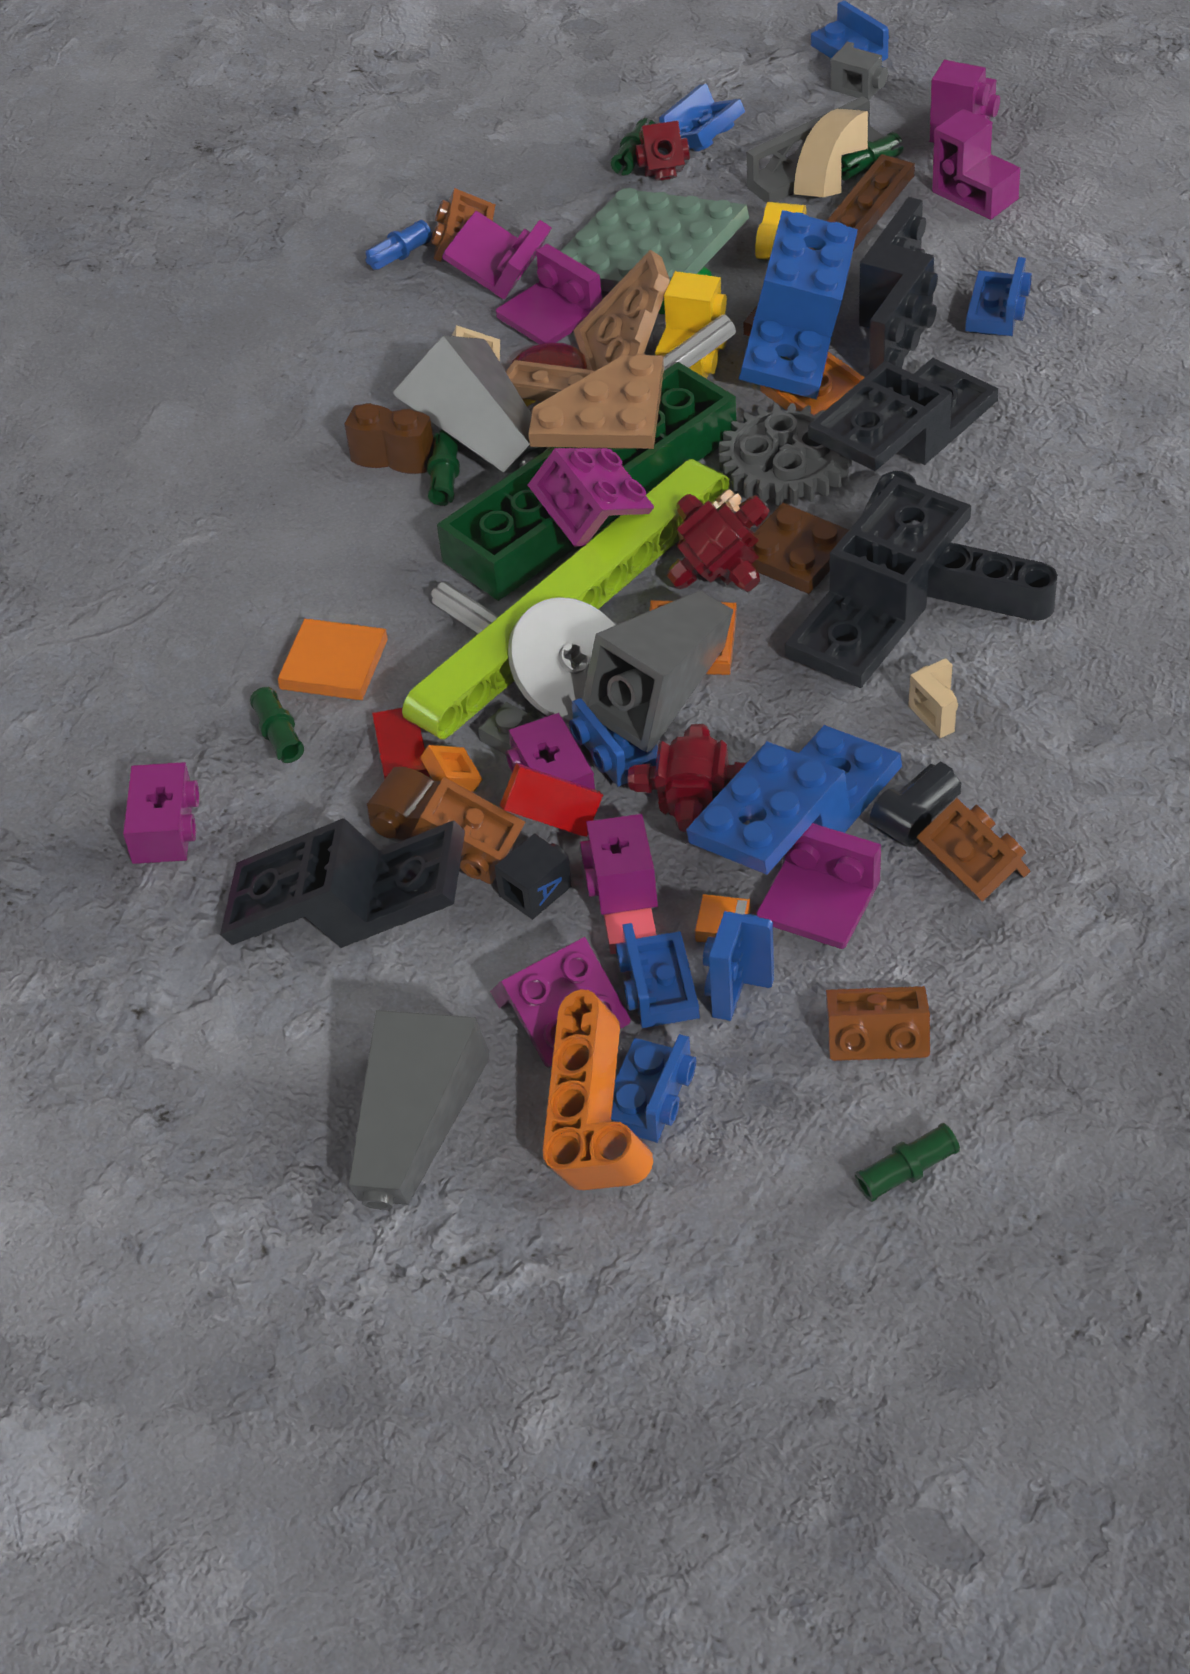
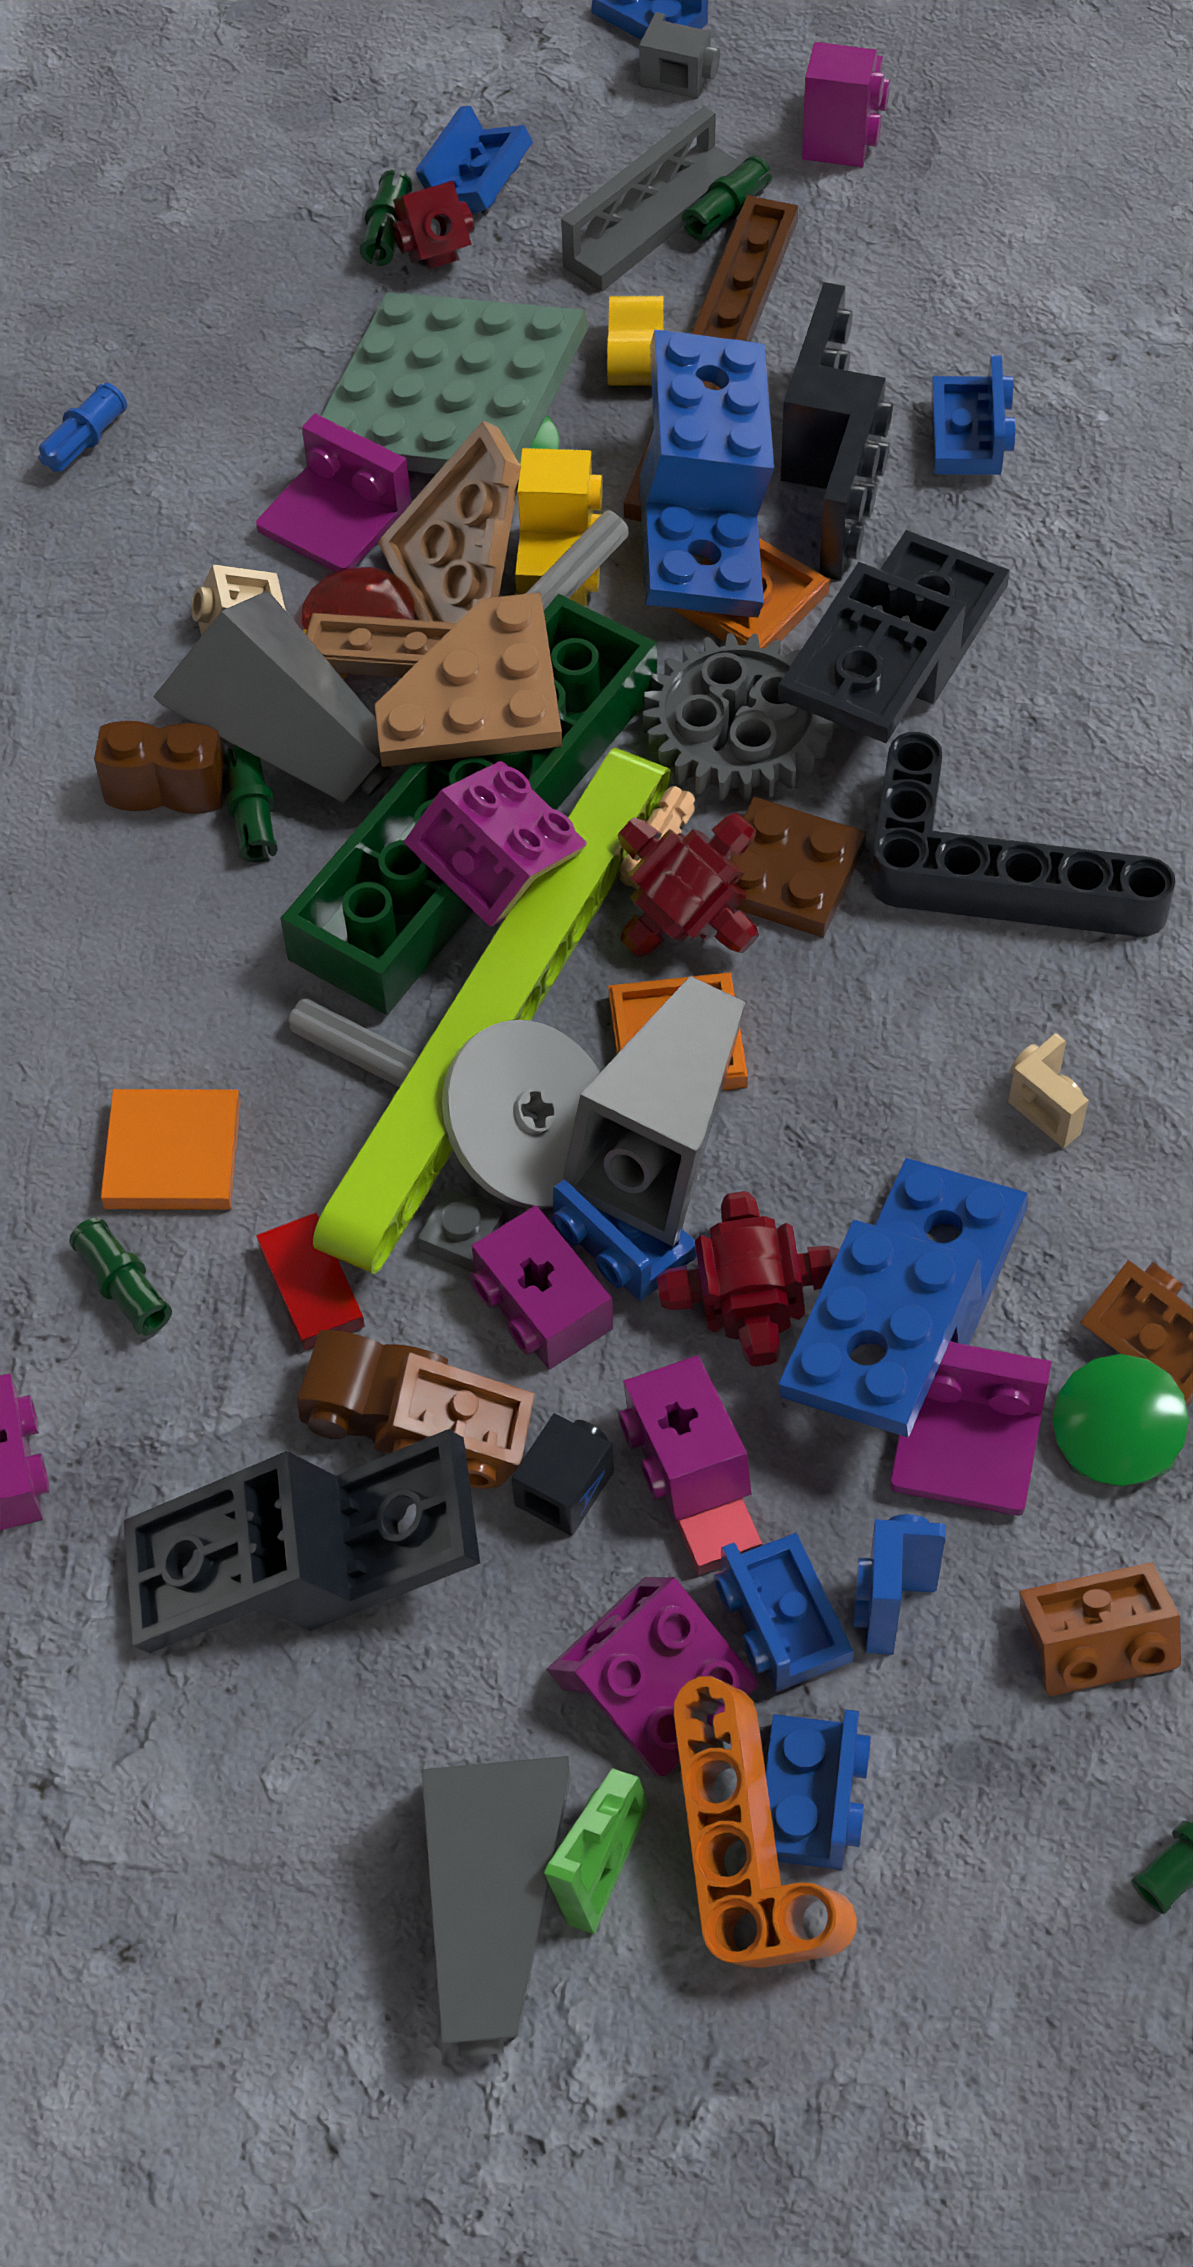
camera: 15 degrees left, 10 degrees up
(452, 764) = (397, 1312): orange plate -> none
(453, 216) = (170, 384): dark orange bracket -> none
(487, 1093) = (596, 1850): none -> bright green wing
(493, 254) = (234, 431): magenta bracket -> none
(550, 800) = (562, 1352): red tile -> none
(712, 911) = (843, 1496): orange tile -> none
(820, 158) = (680, 182): tan brick -> none
(877, 581) = (929, 919): black bracket -> none
(911, 809) = (1061, 1278): black piece -> none
(927, 898) = (1120, 1420): none -> green dish
(968, 171) = (879, 212): magenta brick -> none

